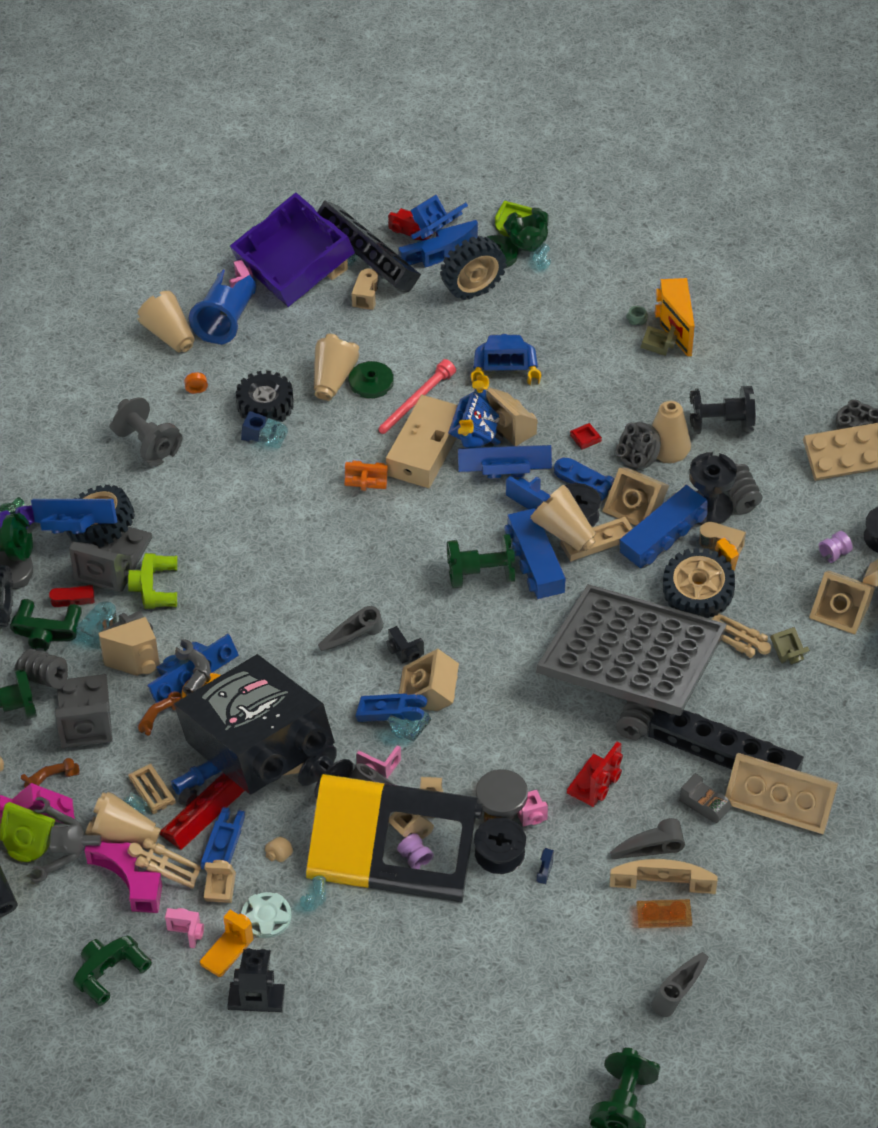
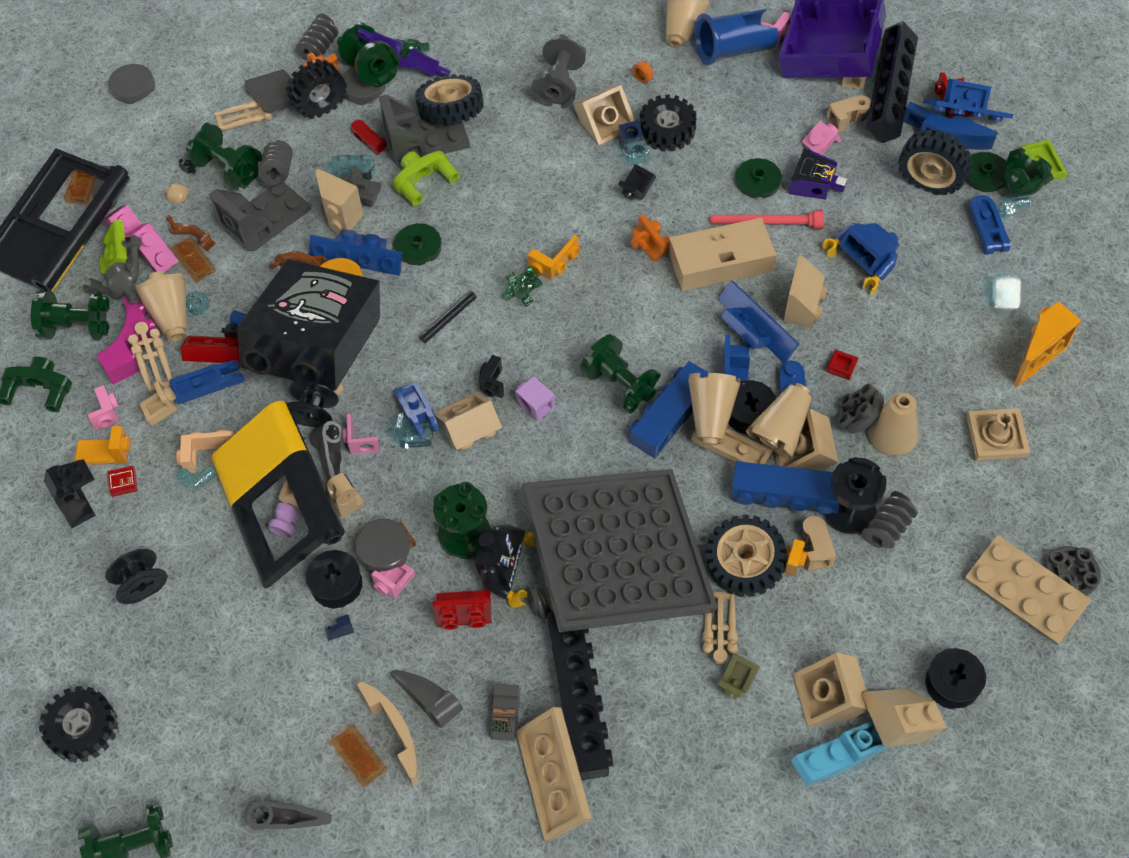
camera: 55 degrees right, 10 degrees up
(43, 631) = (318, 142): dark green connector -> none
(51, 911) = (48, 315): none -> dark green piece
(72, 514) = (424, 81): blue bracket -> none
(81, 786) = (193, 259): none -> clear orange plate
(161, 804) = (207, 317): tan tile -> none
(202, 668) = (350, 258): dark grey piece -> none
(209, 628) = (421, 252): none -> dark green plate
(214, 429) = (604, 112): none -> tan slope
(268, 913) = (155, 456): light aqua wheel -> none
(276, 946) = (122, 481): none -> red tile
(278, 849) = (227, 422): tan piece -> none
(283, 882) = (199, 441): none -> light nougat bracket
(304, 451) = (637, 183): none -> black bracket
(313, 645) = (447, 317): none -> black bar
(327, 553) = (550, 267): none -> light orange bracket
(332, 365) = (739, 142): tan cone -> none
(332, 578) = (522, 285): none -> clear green piece
(353, 628) = (482, 331): dark grey piece -> none
(373, 319) = (821, 137): none -> bright pink bracket
(385, 974) = (136, 576): none -> black piece
(406, 344) = (815, 176): none -> torso
(448, 629) = (535, 398): none -> lavender brick
(475, 418) = (768, 272): torso -> none
(490, 1074) = (72, 712): none -> black wheel
(528, 738) = (461, 519): none -> dark green piece
(545, 280) = (989, 225): none -> blue plate
(578, 728) = (498, 560): none -> black torso
(612, 308) = (1006, 292): none -> clear light blue bracket
(616, 489) = (783, 421): none -> tan cone
(637, 315) = (1021, 311): sand green plate -> none
(658, 340) = (1004, 349): olive bracket -> none
(721, 383) = (998, 434): none -> tan plate
(731, 409) = (970, 455): black piece -> none
(838, 545) = (893, 644): lavender wheel -> none

